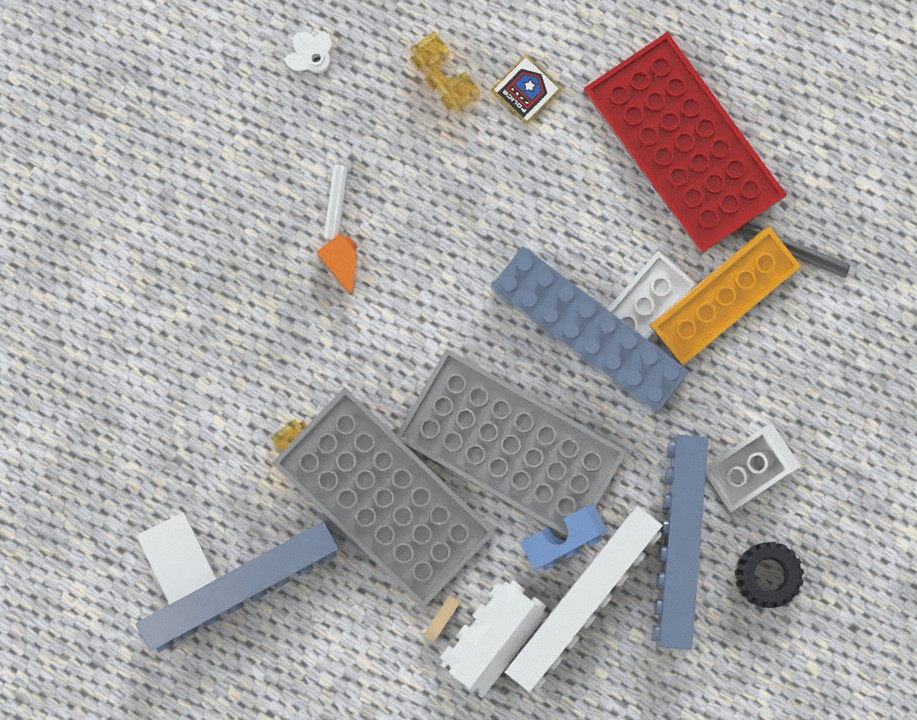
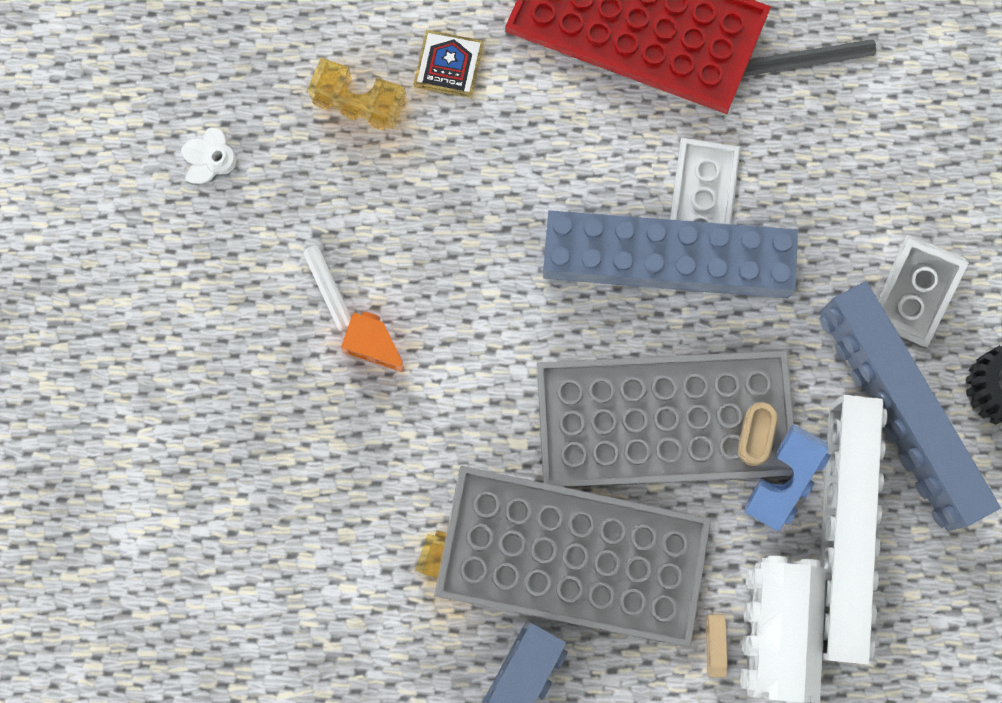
camera: 35 degrees left, 5 degrees down
(566, 495) = (757, 434): none -> tan tile
(725, 295) = (777, 139): light orange plate -> none

